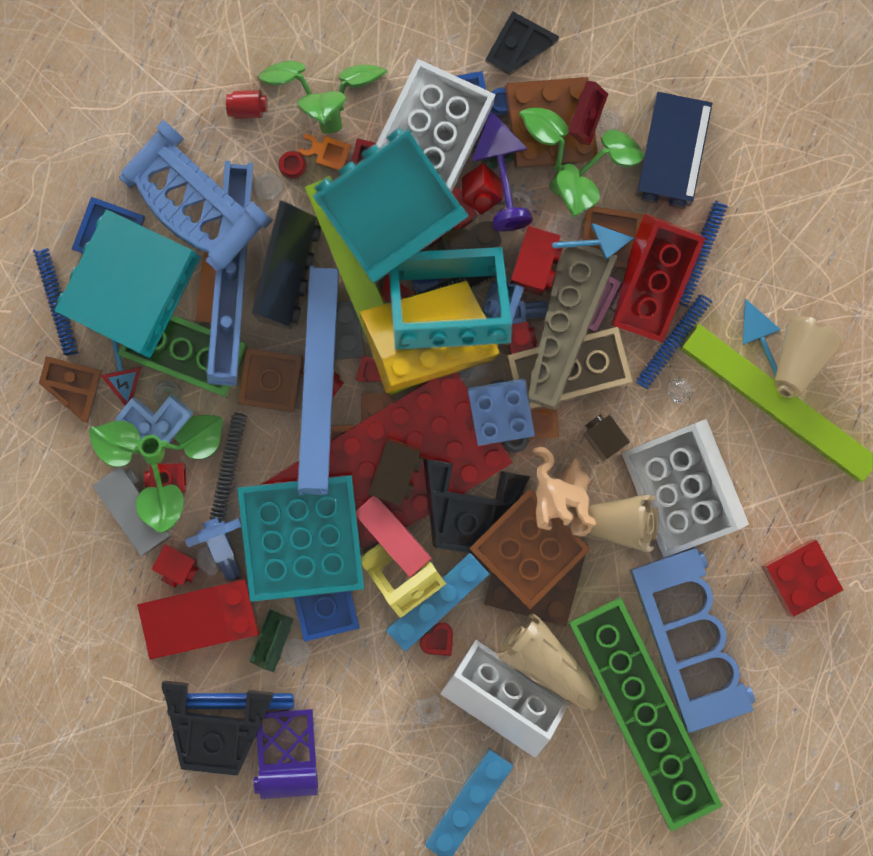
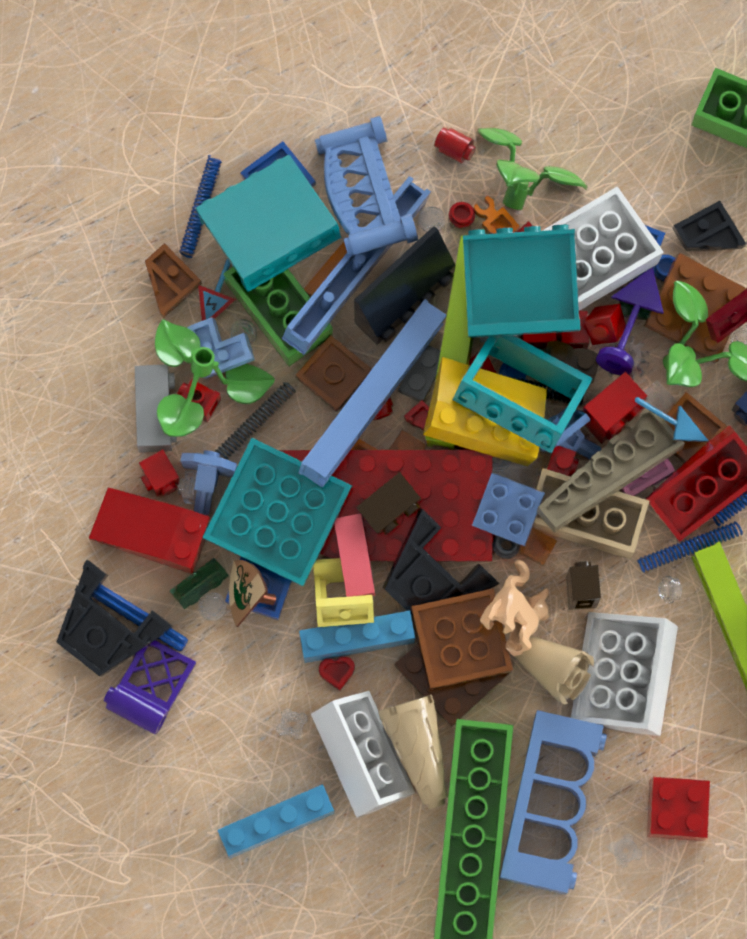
camera: 30 degrees right, 10 degrees down
(318, 624) = (246, 590): none -> shield

